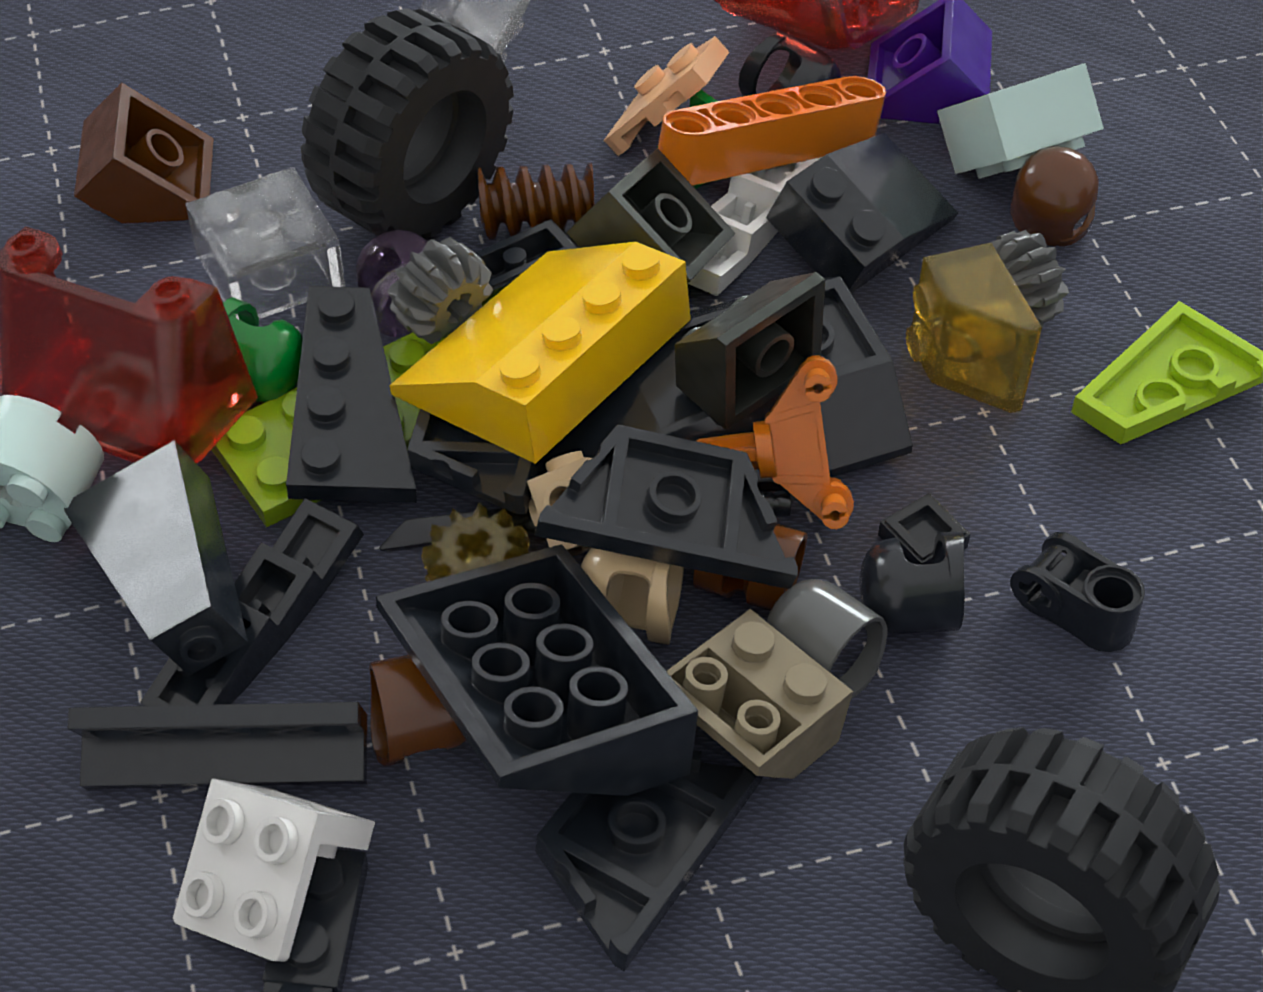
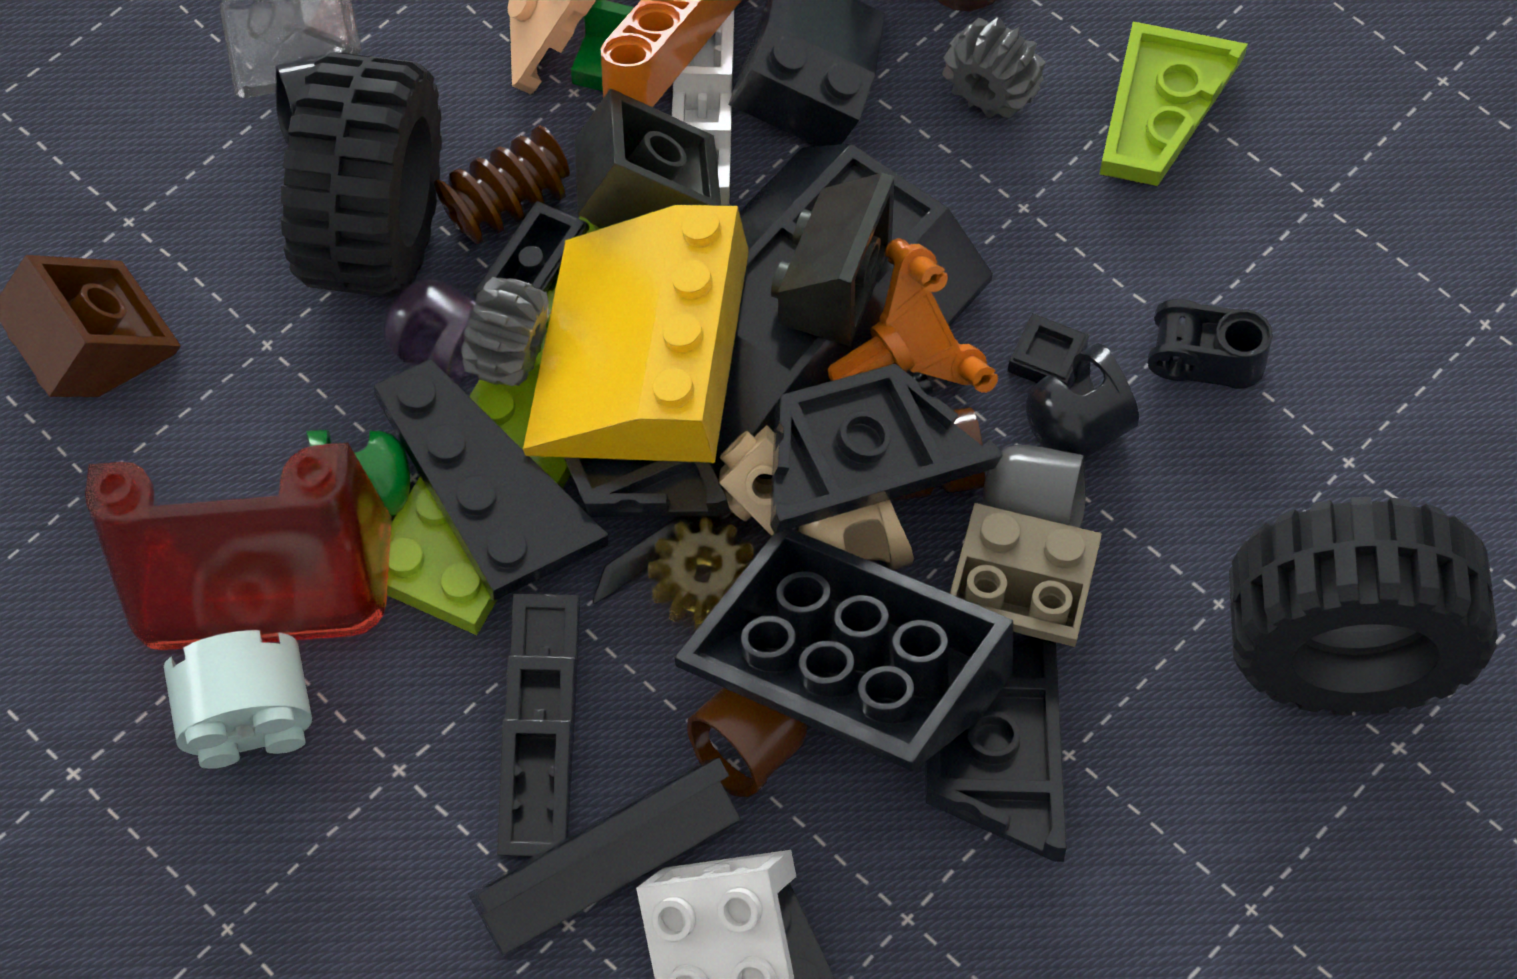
camera: 30 degrees left, 10 degrees up
(165, 555) = (431, 707): slope -> none
(266, 242) = (278, 357): clear brick -> none
(973, 327) = (988, 136): clear yellow slope -> none

